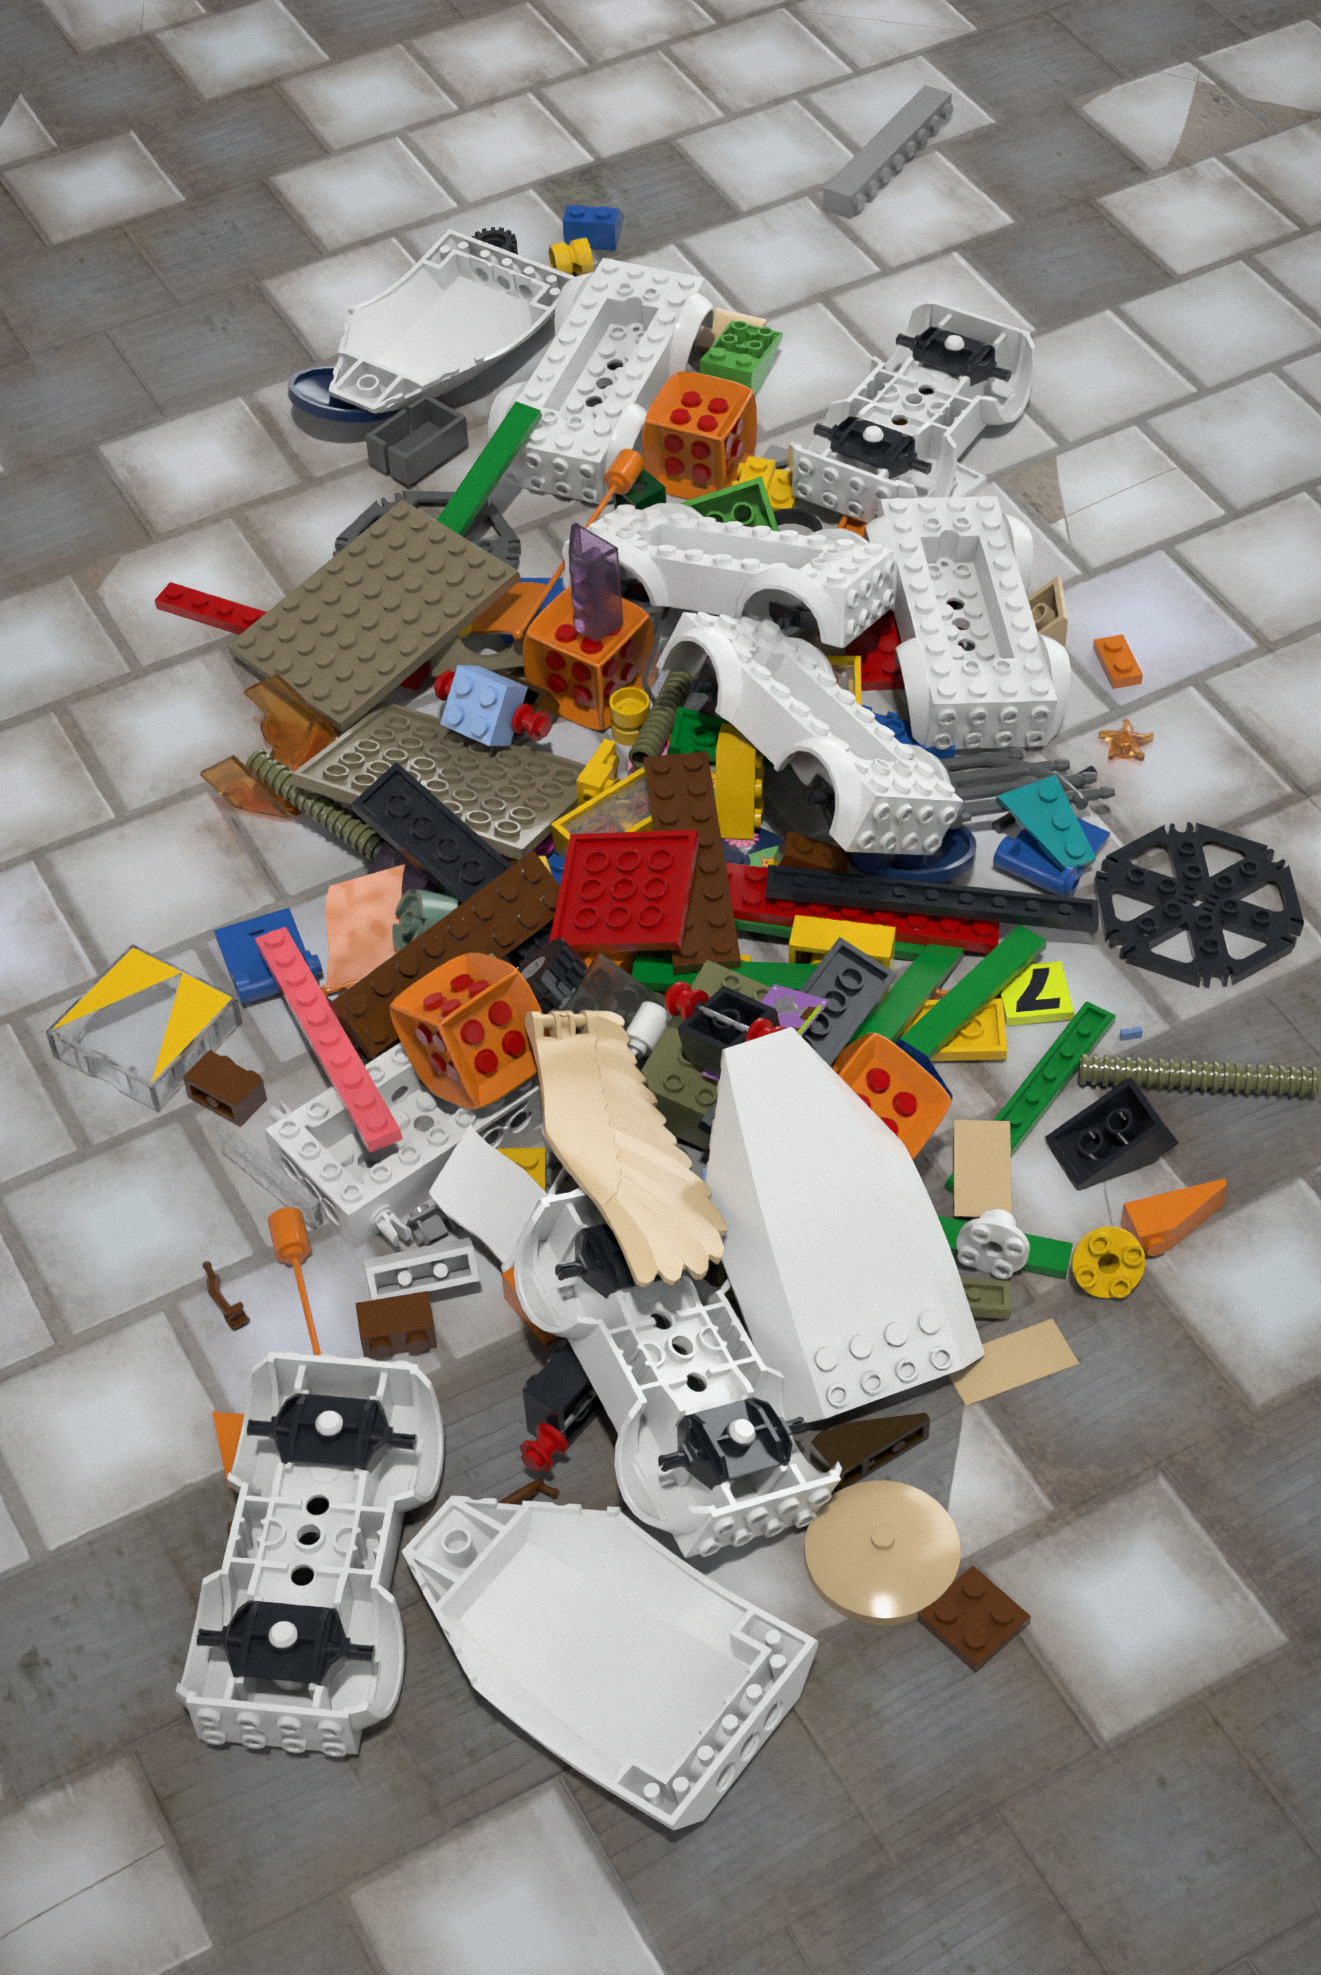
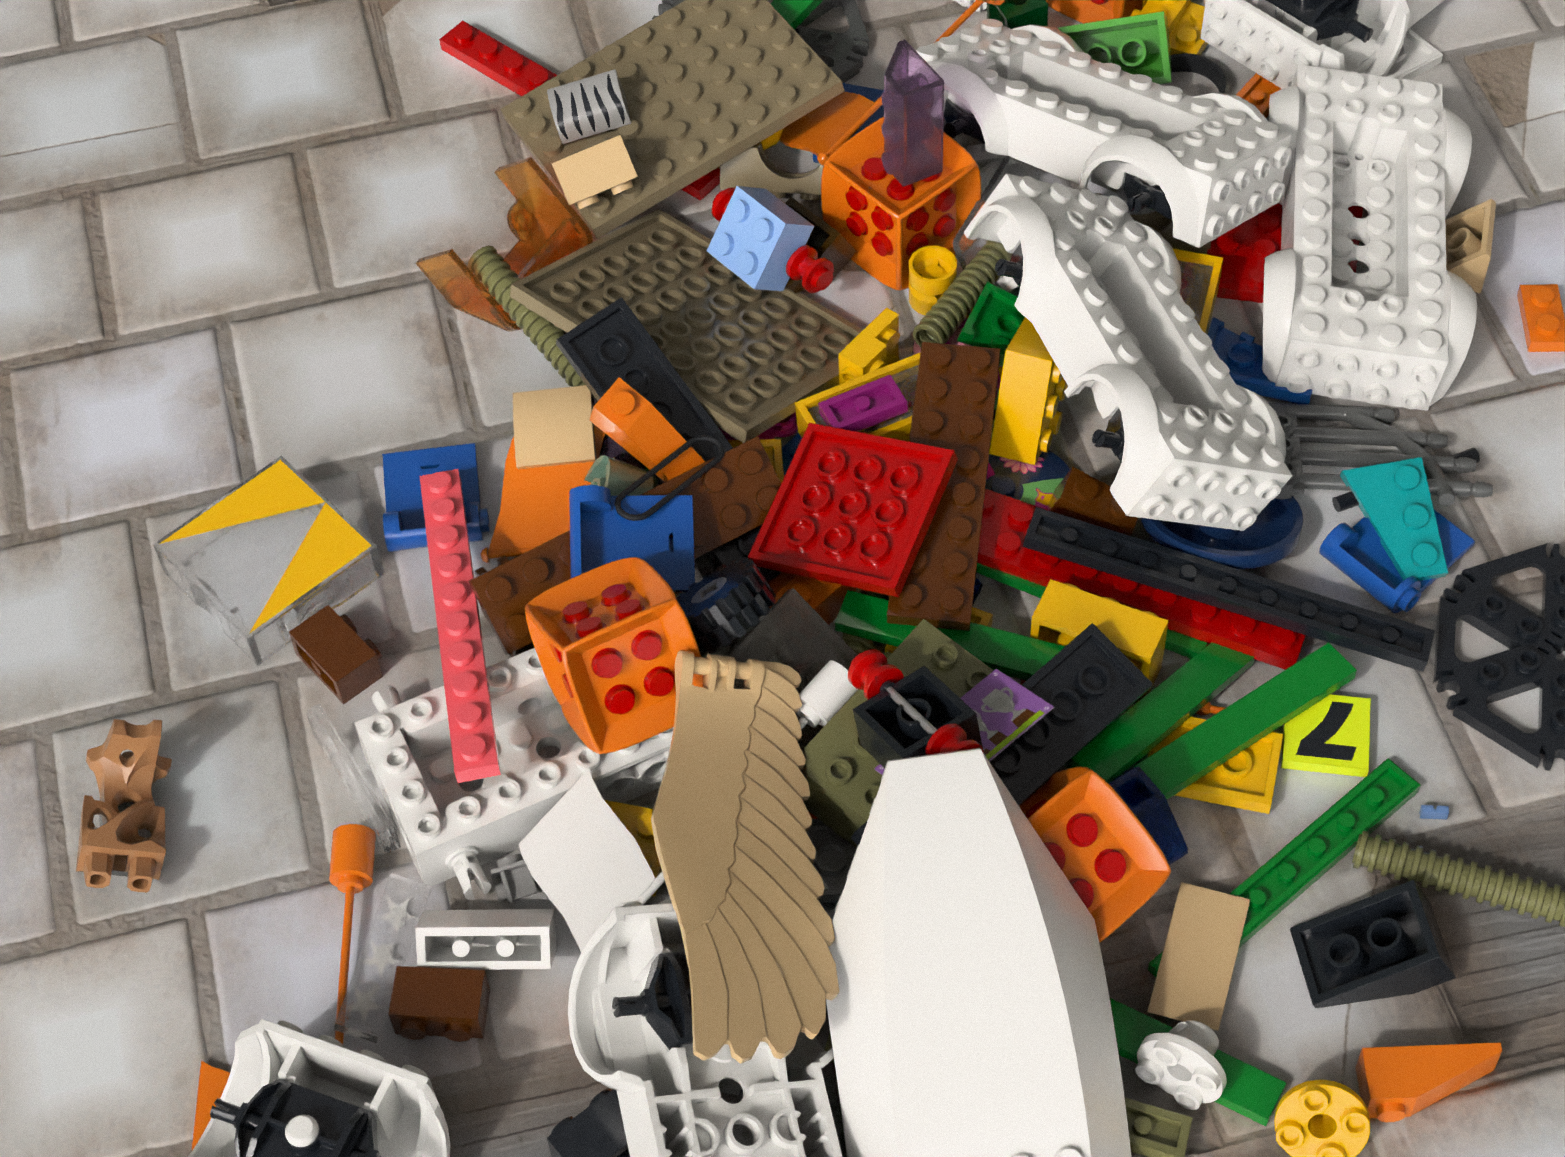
camera: 15 degrees right, 5 degrees up
(81, 1213) = (121, 781): none -> medium nougat hips
(232, 1314) = (263, 943): reddish brown piece -> none
(309, 627) = (589, 106): none -> light grey brick
(332, 676) = (595, 171): none -> tan slope
(338, 1299) = (384, 949): none -> clear tile
(360, 877) = (553, 427): none -> tan slope
(440, 862) = (642, 430): none -> orange slope
(446, 935) = (604, 536): none -> blue door
(481, 902) = (680, 488): none -> black piece
(610, 813) = (864, 405): none -> magenta plate
(1126, 742) = (1526, 425): clear orange animal -> none

